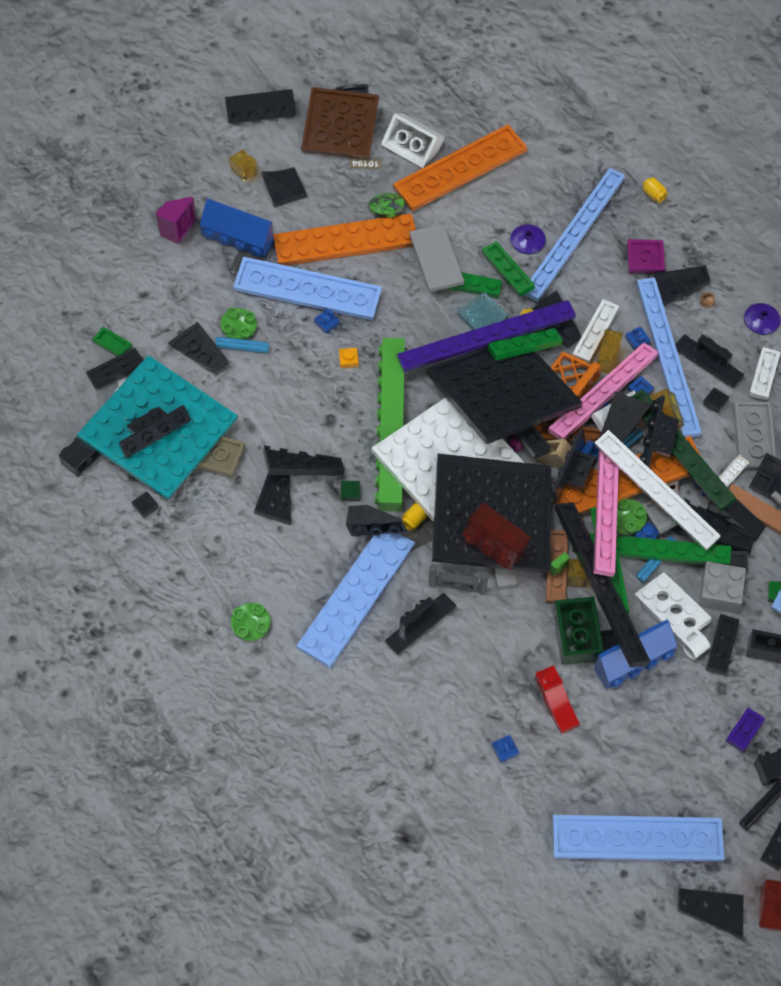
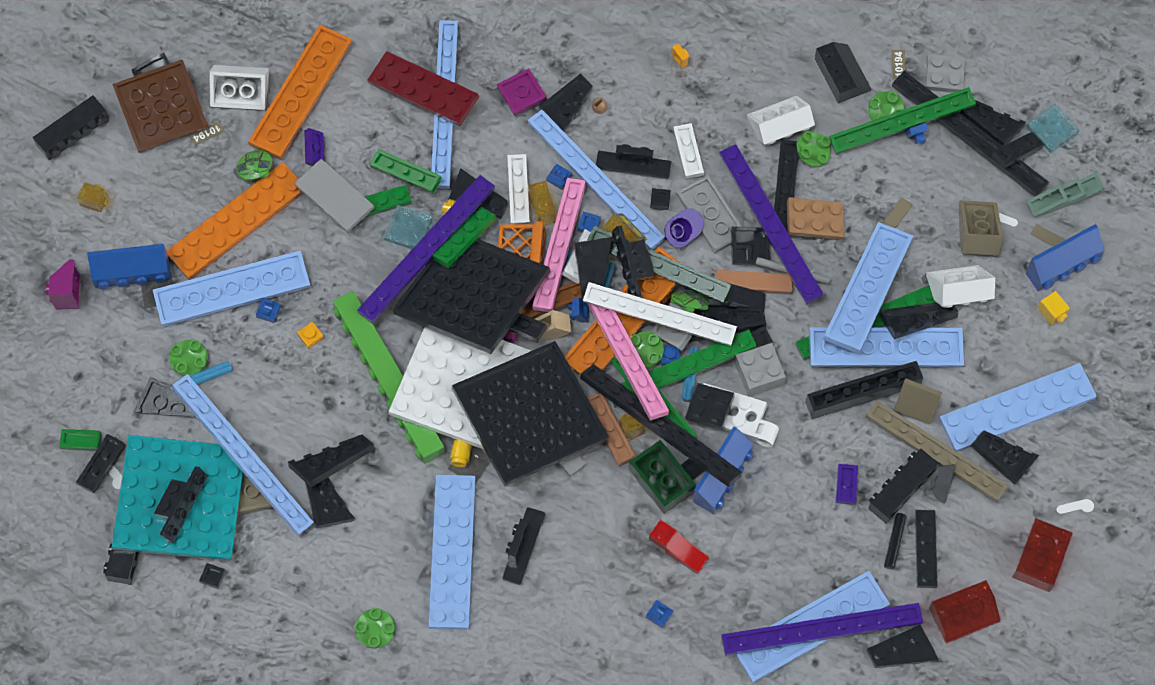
camera: 30 degrees left, 5 degrees up
(229, 420) = (242, 455): none -> light blue plate
(283, 186) = (144, 197): black plate -> none
(350, 491) = (388, 459): dark green tile -> none
(372, 521) = (426, 478): black slope -> none
(444, 212) = (313, 146): none -> dark purple plate
(456, 581) = (534, 490): dark grey plate -> none
(496, 536) = (550, 434): clear red brick -> none
(525, 244) = (404, 137): dark purple dish -> none
(559, 564) = (613, 425): bright green tile -> none
(563, 212) = (423, 88): none -> dark red plate
(575, 469) = (579, 332): black bracket -> none
(647, 845) = (821, 629): none -> dark purple plate
(654, 189) = (492, 21): yellow brick -> none
(657, 593) = (710, 406): none -> black plate
(692, 495) = (689, 300): none -> bright green dish
(722, 432) = (683, 227): none -> piece
(722, 644) = (787, 420): black plate -> none
(733, 470) = (710, 257): sticker -> none
(759, 324) = (656, 105): dark purple dish -> none

